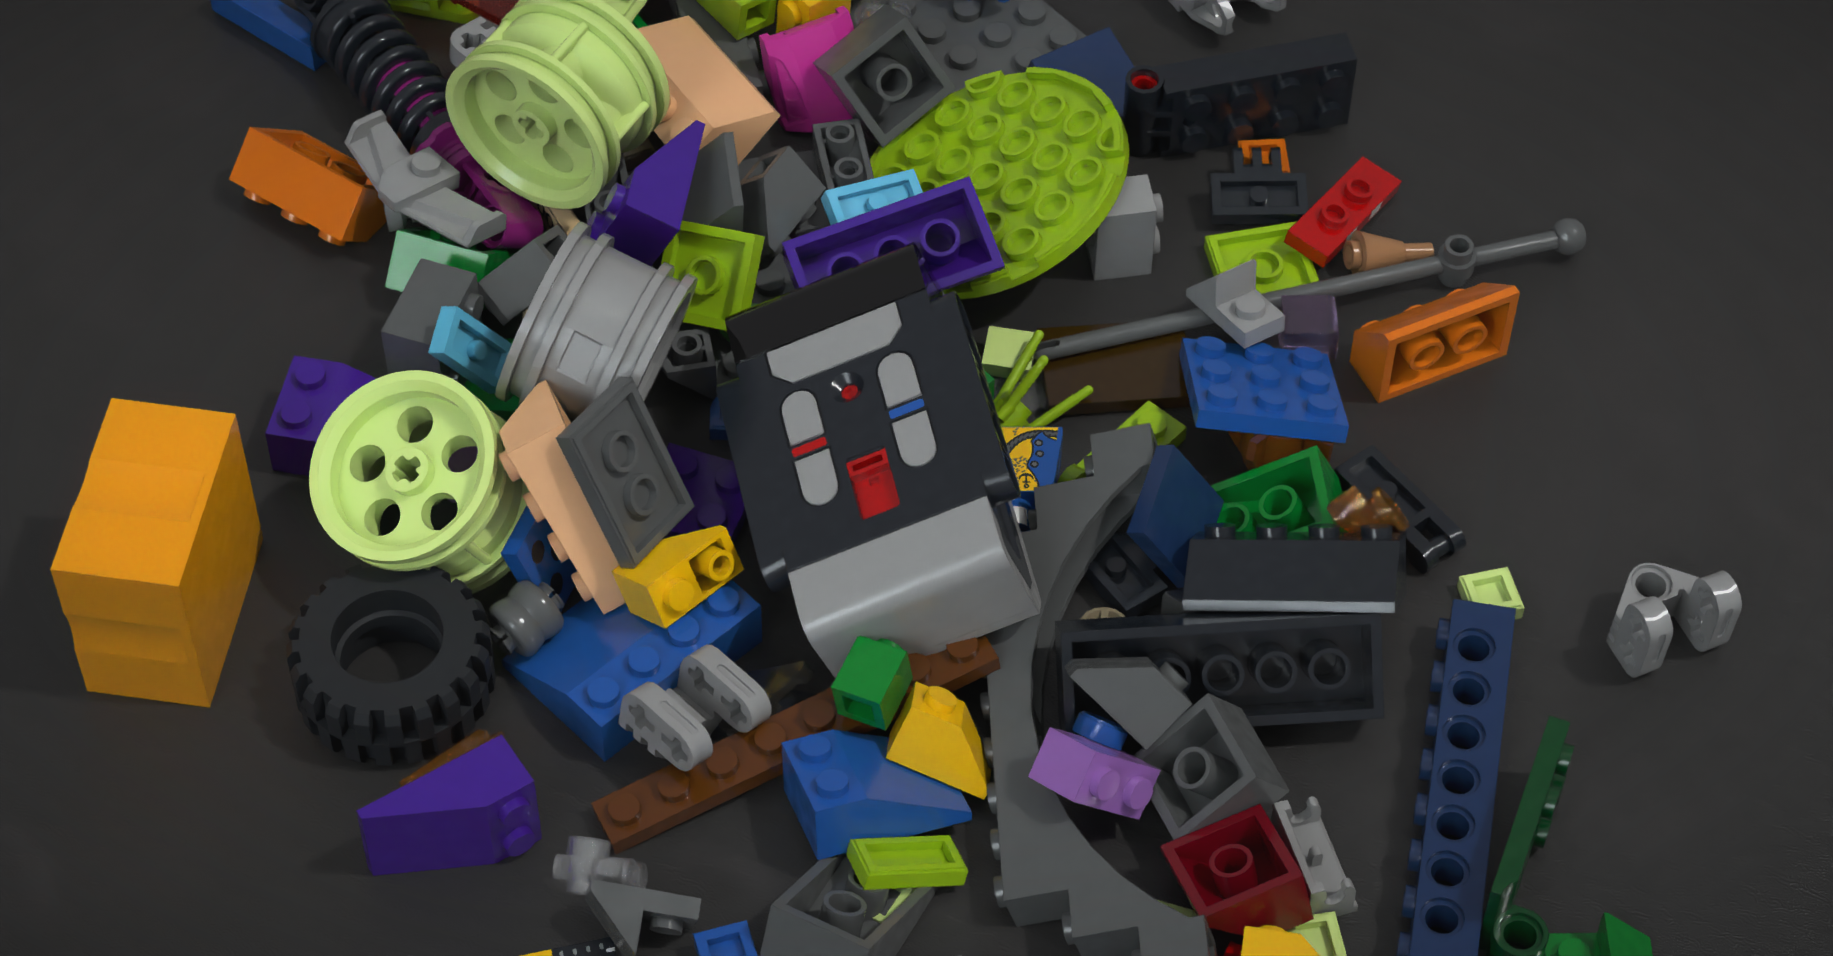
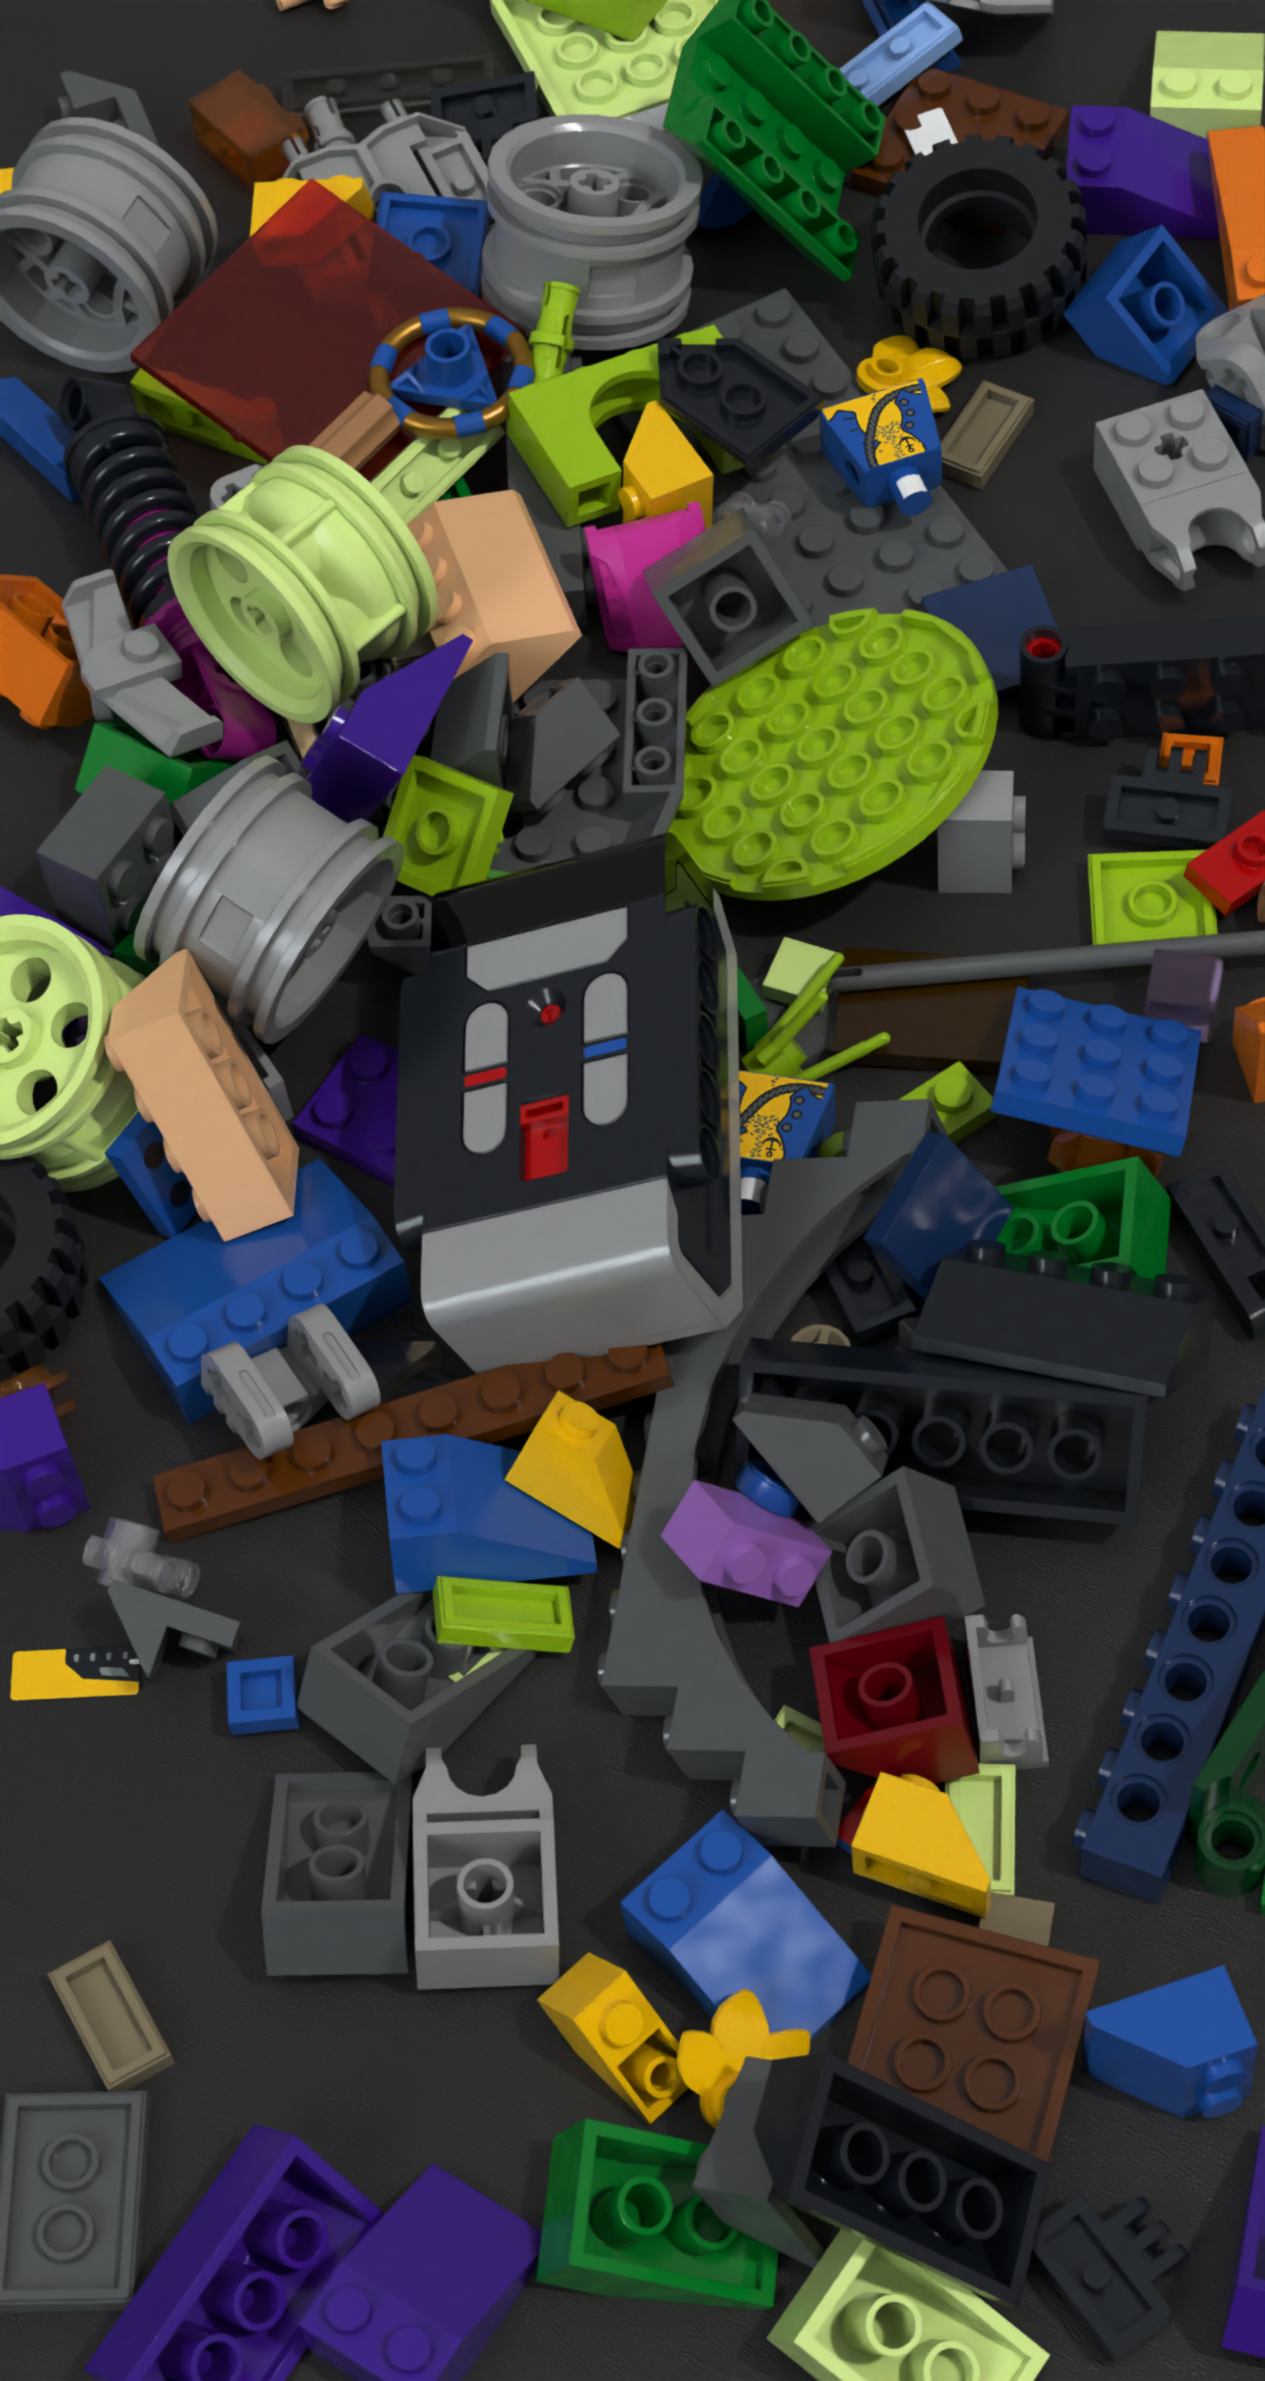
camera: 20 degrees right, 5 degrees up
(469, 347) = (121, 876): medium azure plate -> none
(525, 618) = (127, 1234): dark grey piece -> none
(625, 472) = (257, 1077): dark grey tile -> none
(679, 574) = (309, 1208): yellow slope -> none
(868, 195) = (669, 766): medium azure plate -> none
(872, 681) = (502, 1383): green brick -> none
(942, 223) = (725, 814): dark purple slope -> none
(1237, 305) = (1095, 956): light grey slope -> none
(1354, 510) = (1175, 1250): clear orange piece -> none

